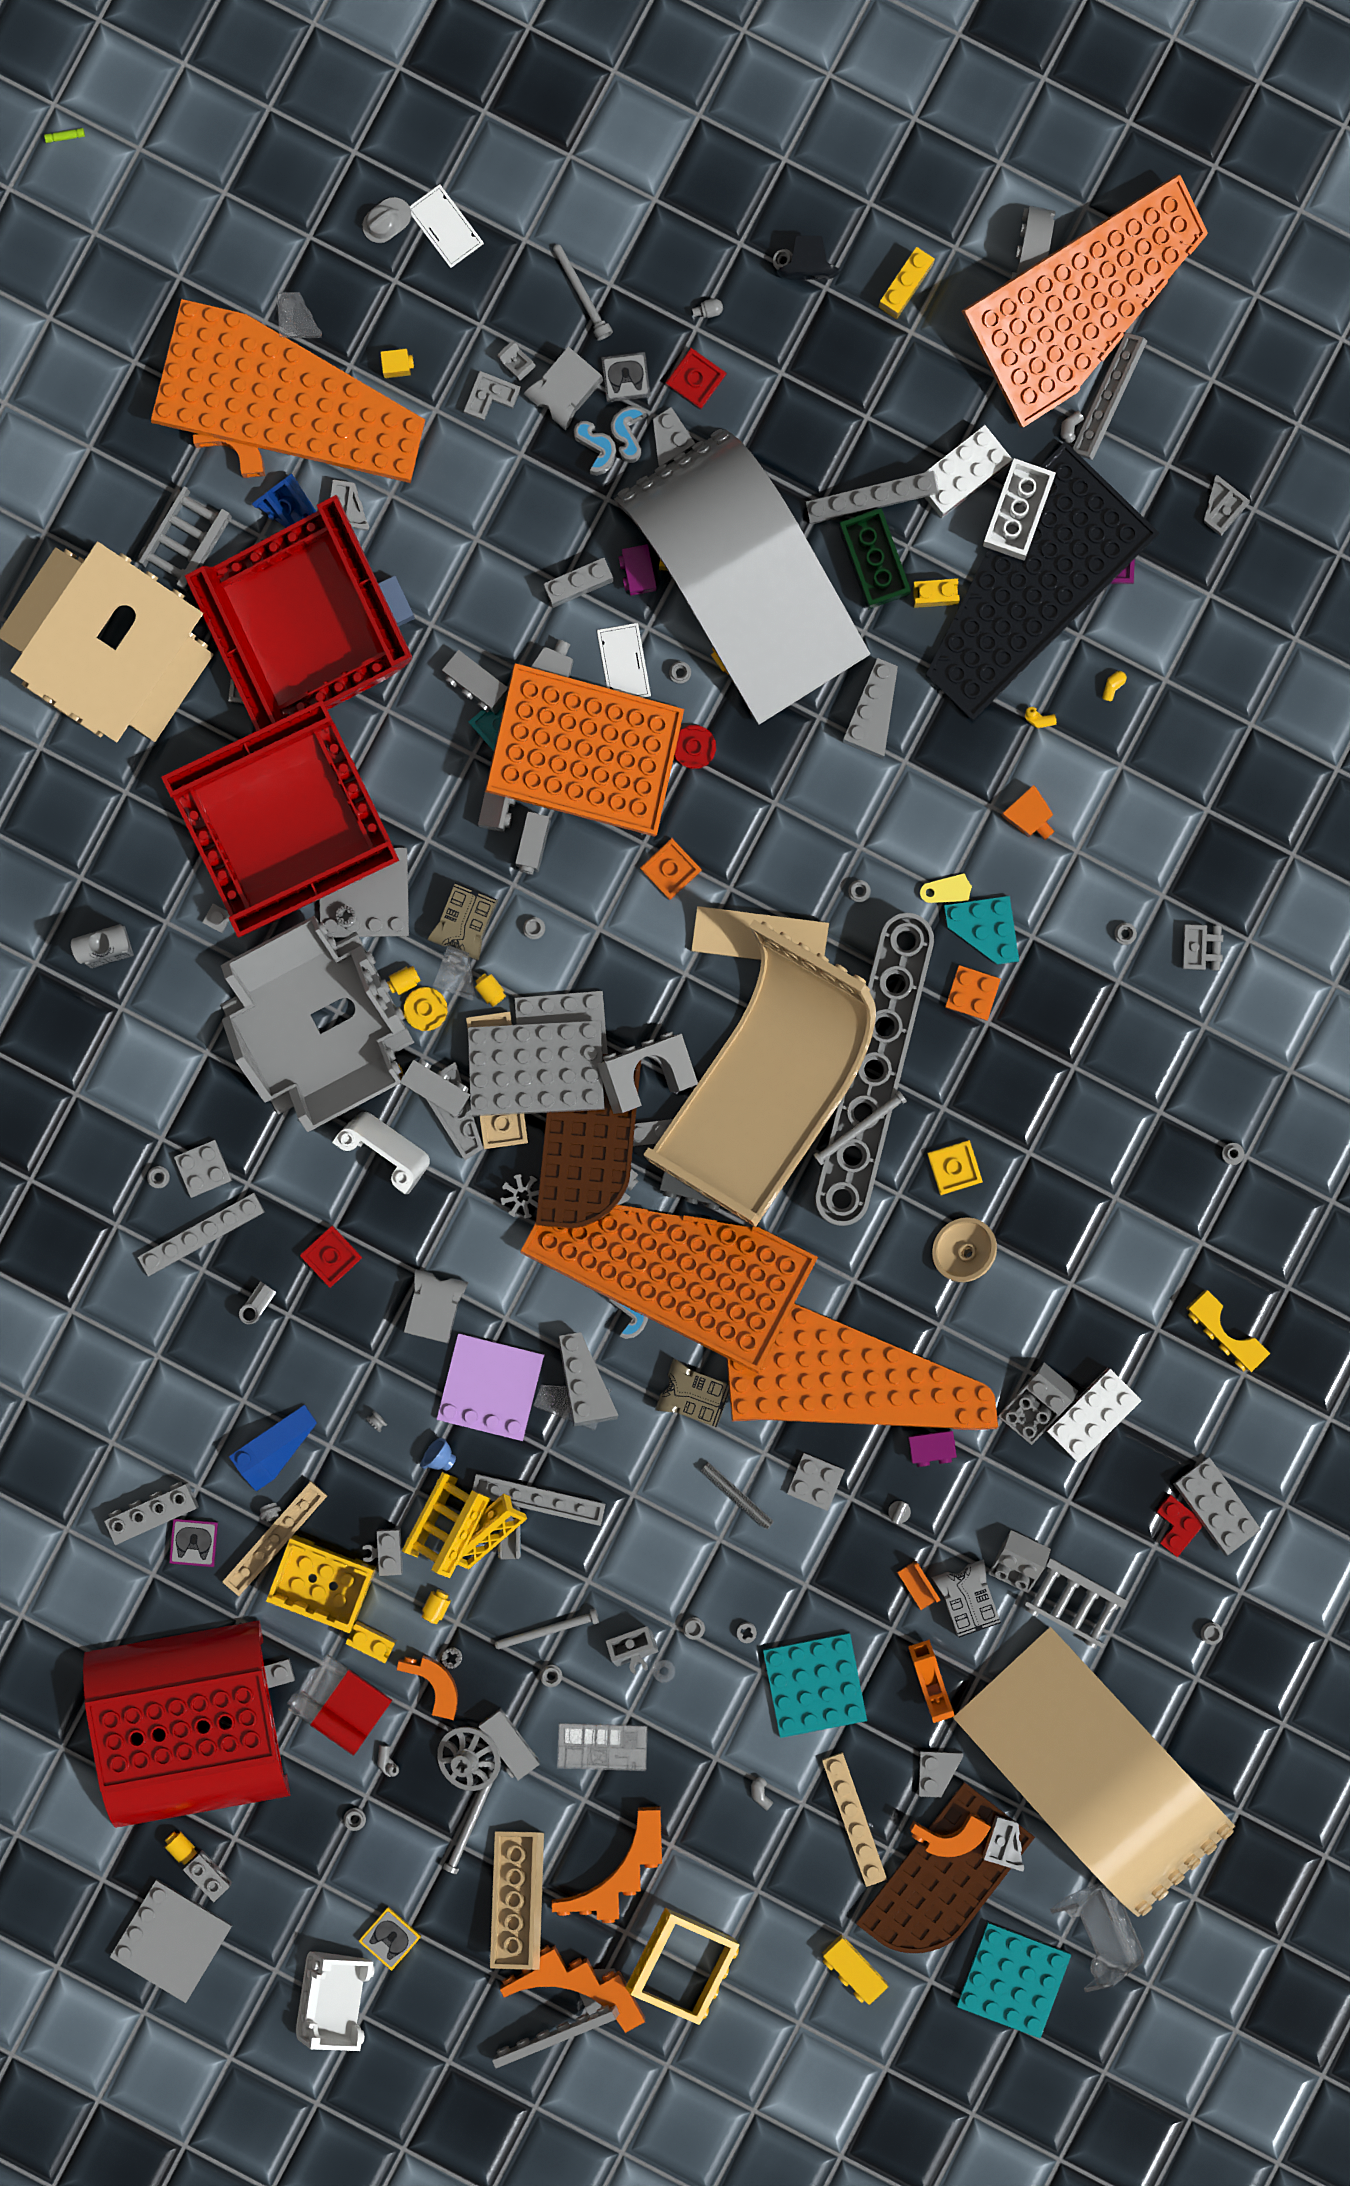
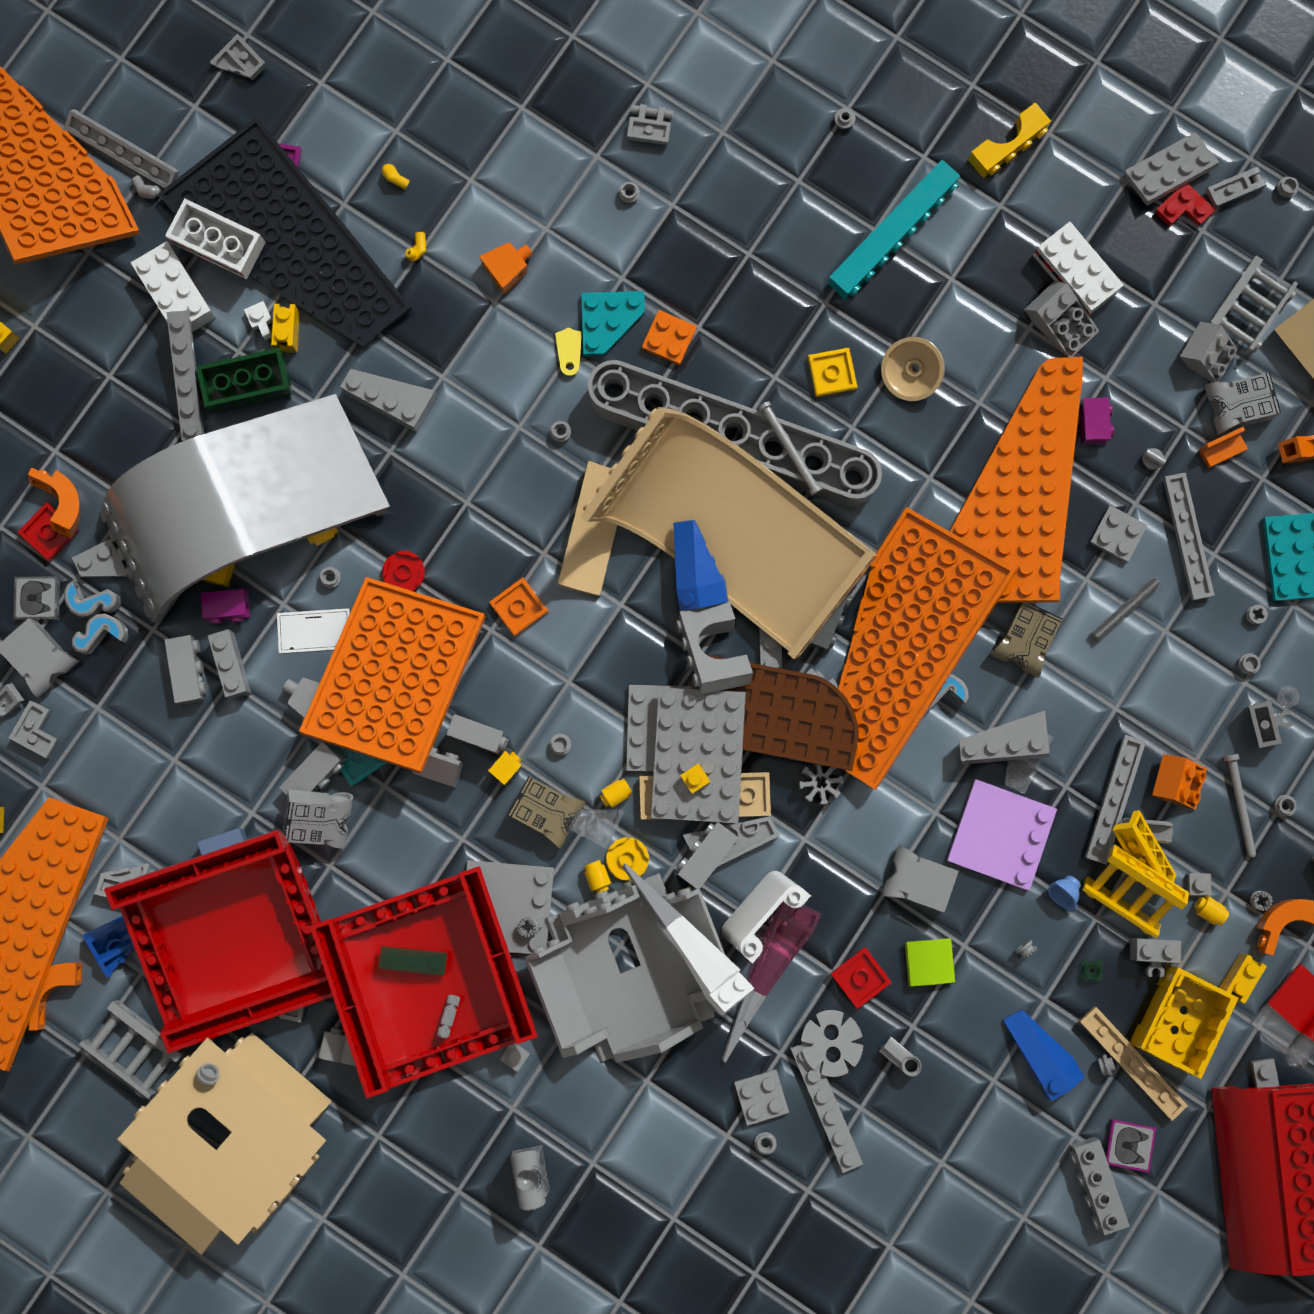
camera: 85 degrees left, 5 degrees down
(168, 619) = (208, 1074): none -> light grey plate
(207, 740) = (336, 1047): none -> light grey brick
(249, 847) = (448, 1016): none -> light grey axle
(274, 1248) = (817, 1053): none -> light grey piece
(300, 805) = (412, 960): none -> clear green plate
(320, 1104) = (713, 971): none -> white plate
(354, 1325) = (929, 962): none -> lime slope
(358, 1173) = (782, 942): none -> clear pink plate
(358, 1494) = (1096, 975): none -> clear green plate
(431, 691) = (317, 817): none -> light grey piece
(461, 1593) = (1199, 884): none -> light grey plate
(504, 875) = (506, 767): none -> yellow brick
(511, 1067) = (695, 778): none -> yellow plate
(563, 1564) = (1179, 781): none -> orange slope
(568, 539) = (185, 669): none -> light grey brick
(720, 1047) = (696, 574): none -> blue wedge
(738, 390) = (68, 513): none -> orange arch
(820, 1554) = (1188, 536): none -> light grey plate
(945, 563) = (259, 319): none -> white plate
(1115, 1217) = (894, 229): none -> teal brick
(1204, 1577) = (1235, 187): none -> light grey plate

